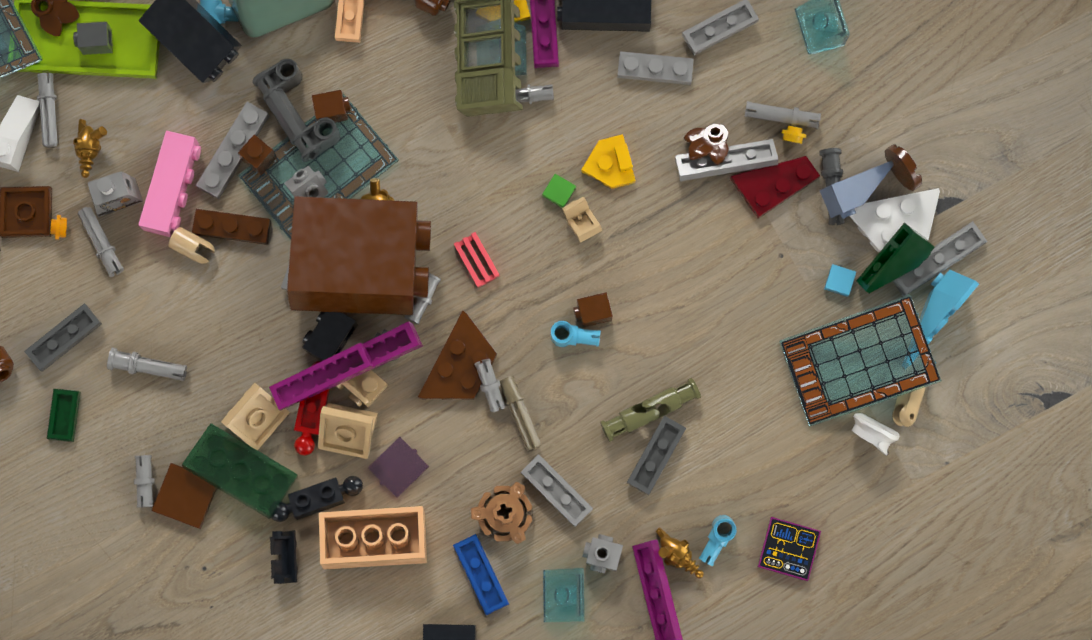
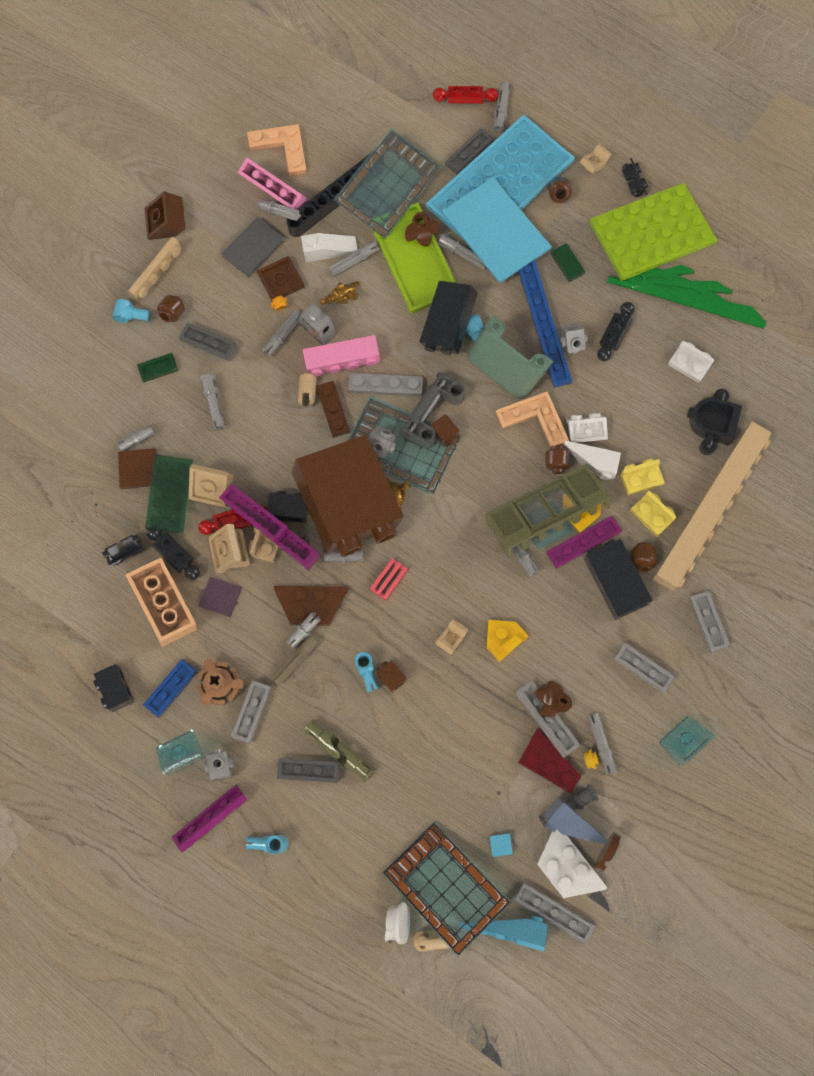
camera: 65 degrees right, 5 degrees down
(93, 38) = (415, 261): dark grey brick -> none
(257, 155) = (387, 400): reddish brown brick -> none
(559, 191) = (466, 612): bright green tile -> none
(655, 68) = (589, 636): light grey plate -> none
(677, 553) = (244, 818): pearl gold piece -> none
(789, 549) = (284, 900): black tile -> none
(898, 257) = (539, 881): dark green slope -> none

